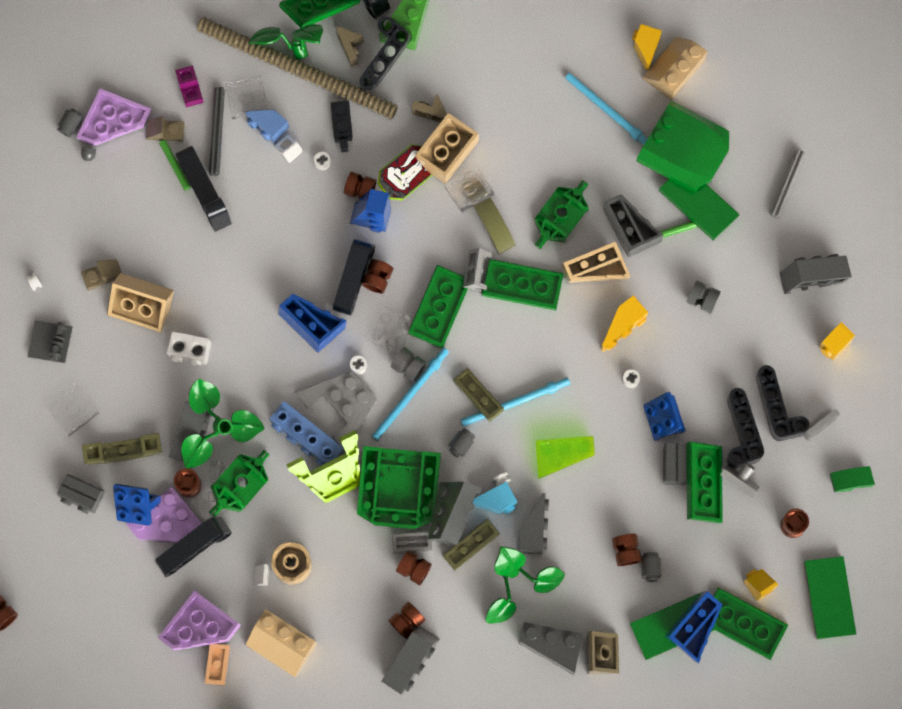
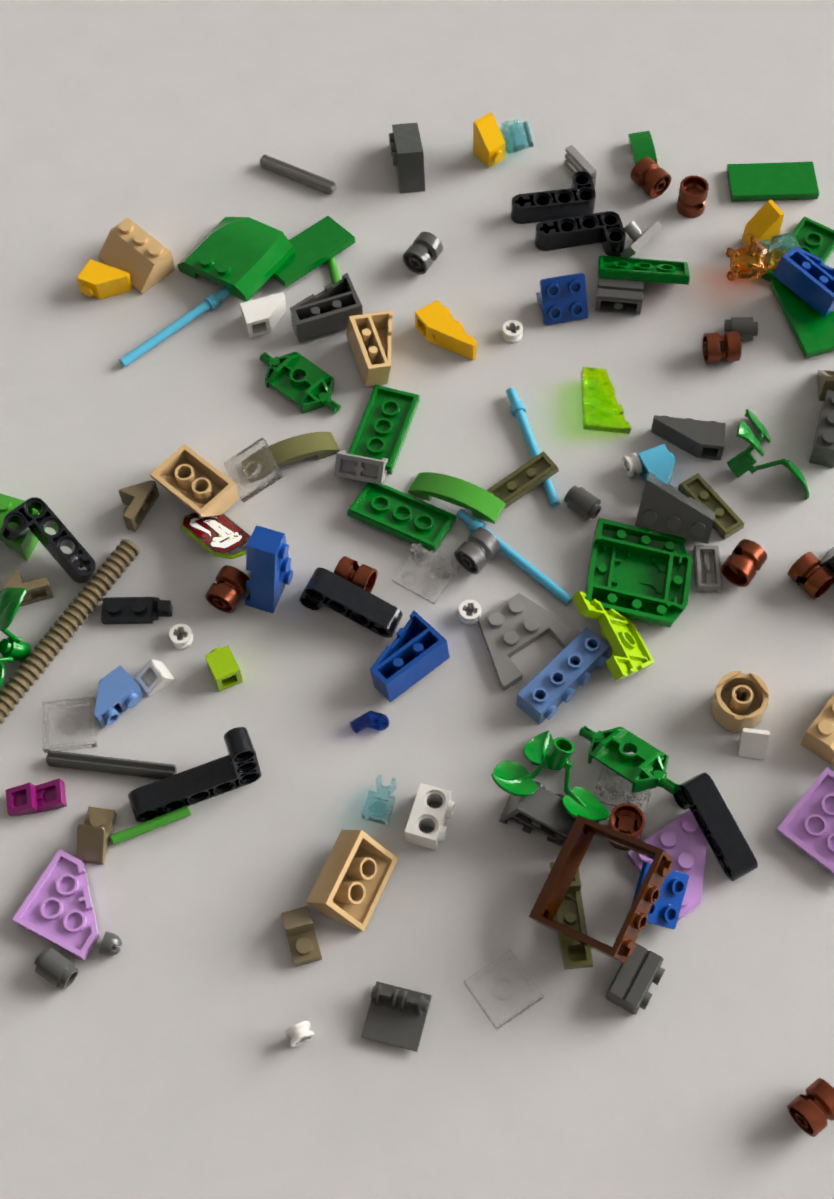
camera: 85 degrees left, 15 degrees down
(140, 437) = (566, 868): none -> reddish brown window
(197, 314) = (380, 803): none -> clear light blue plate
(264, 302) = (370, 720): none -> clear blue arm
(296, 193) = (223, 668): none -> lime brick
(458, 346) = (458, 492): none -> bright green slope
(623, 175) = (263, 313): none -> white slope
(722, 578) = (752, 260): none -> clear orange animal
(746, 604) = (784, 241): none -> clear light blue plate
(816, 484) = (650, 177): none -> copper wheel
(852, 364) = (516, 135): none -> clear light blue slope

